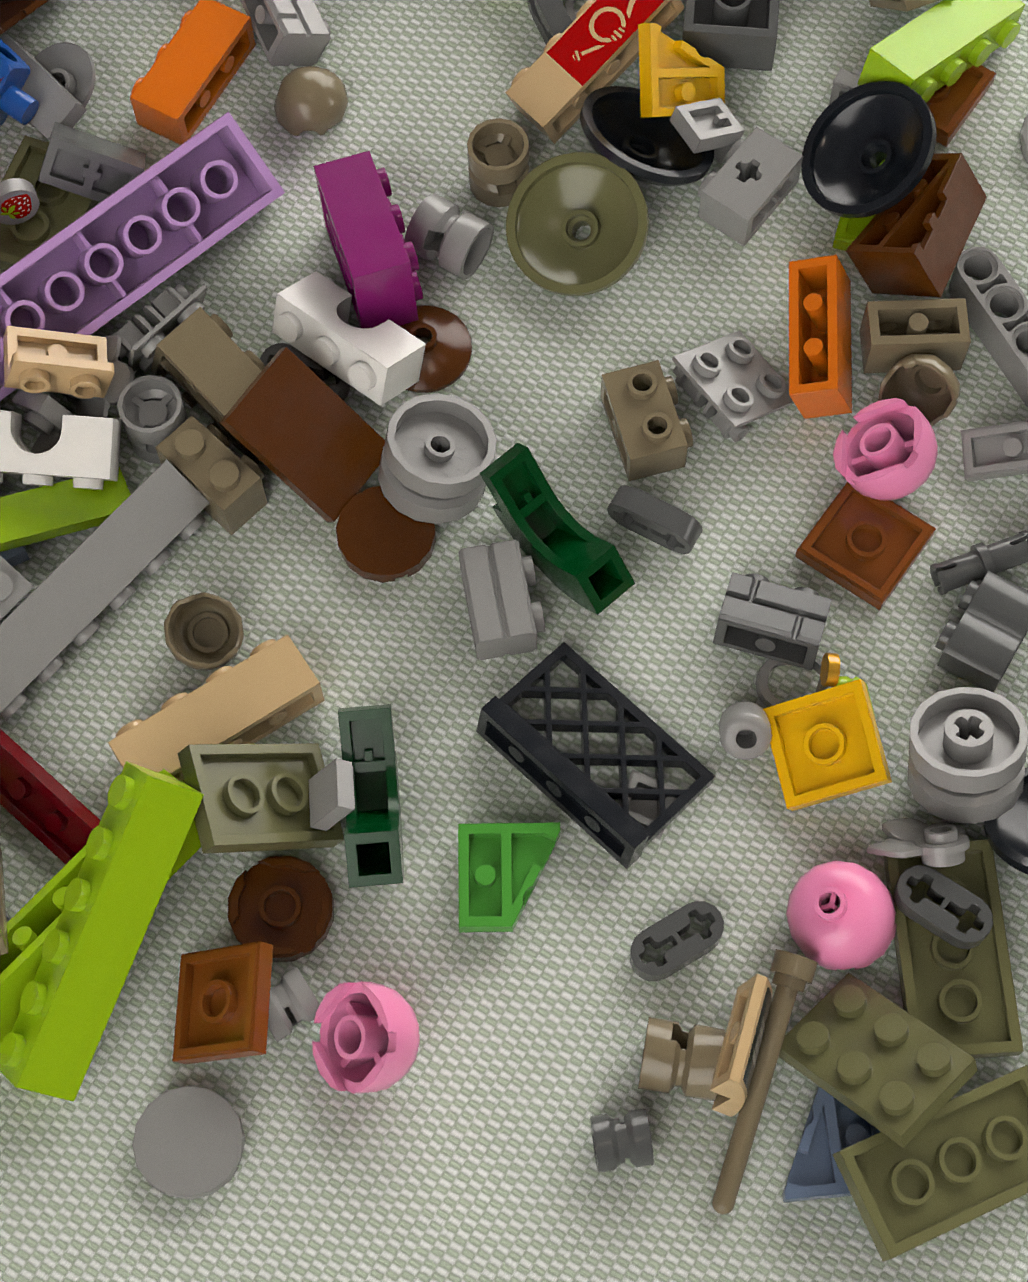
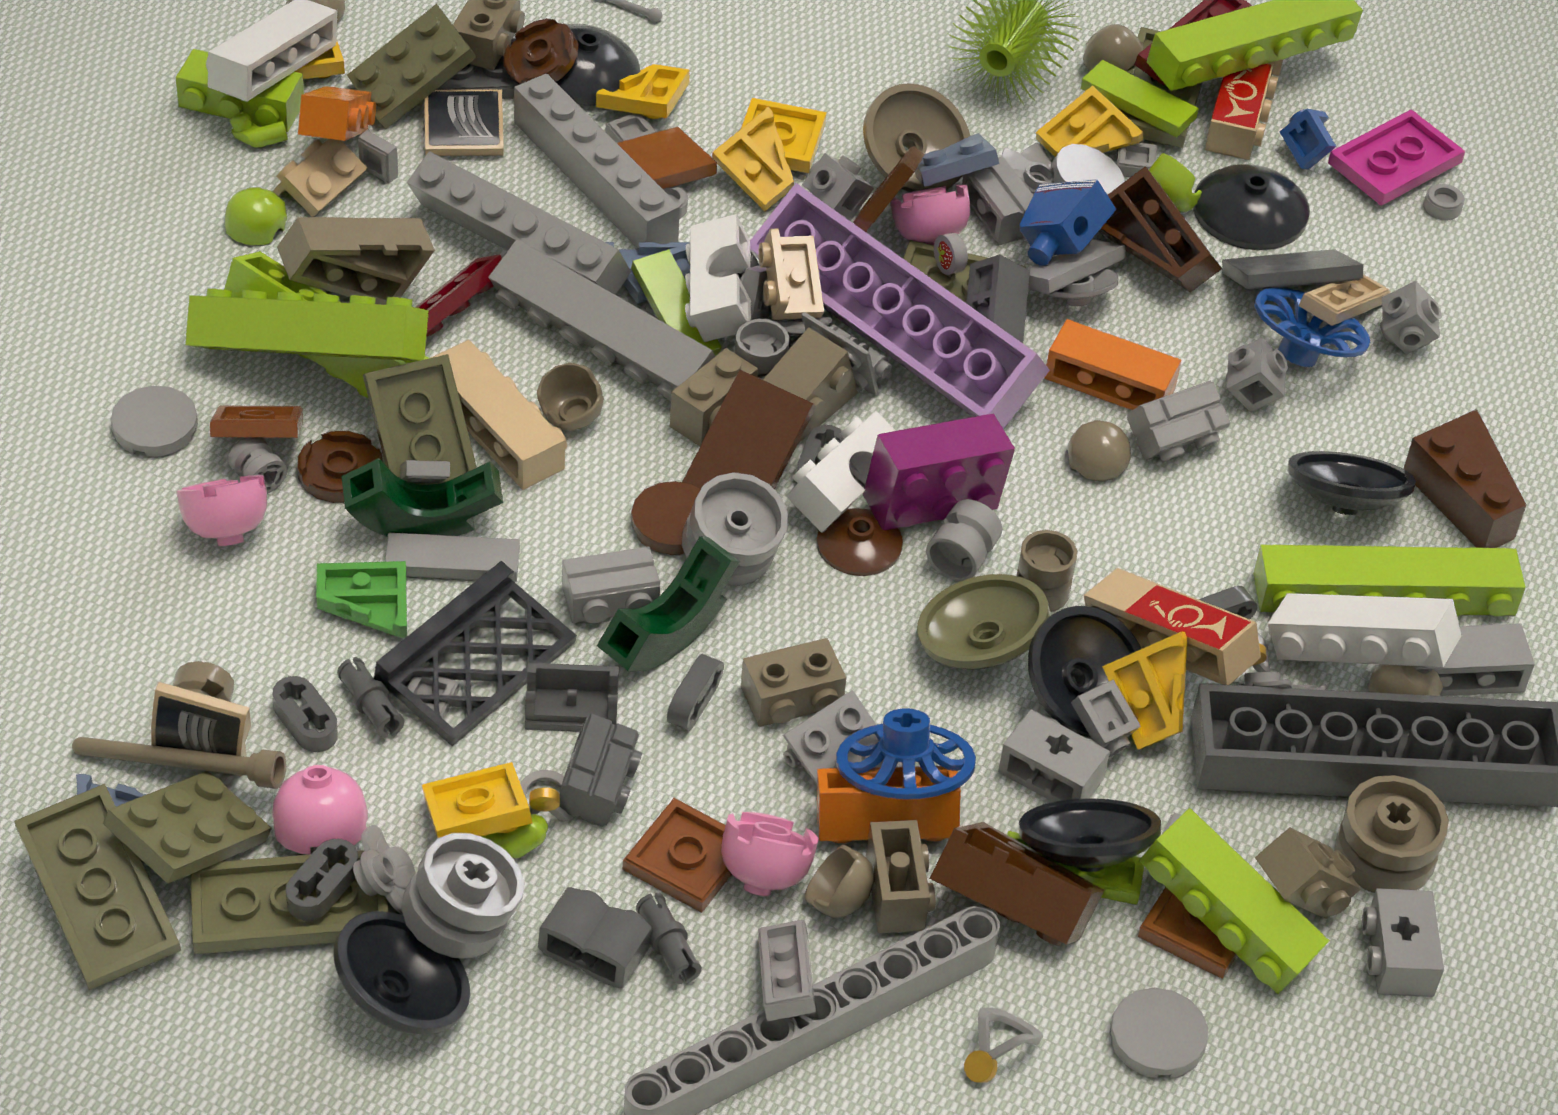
camera: 80 degrees right, 20 degrees down
(437, 777) = (451, 555): none -> light grey tile
(618, 1140) = (134, 671): dark grey wheel -> none
(658, 865) = (370, 697): none -> dark grey pin
(665, 648) = (565, 694): none -> dark grey hinge
(745, 730) = (491, 749): light grey piece -> none
(778, 299) = (907, 740): none -> blue wheel

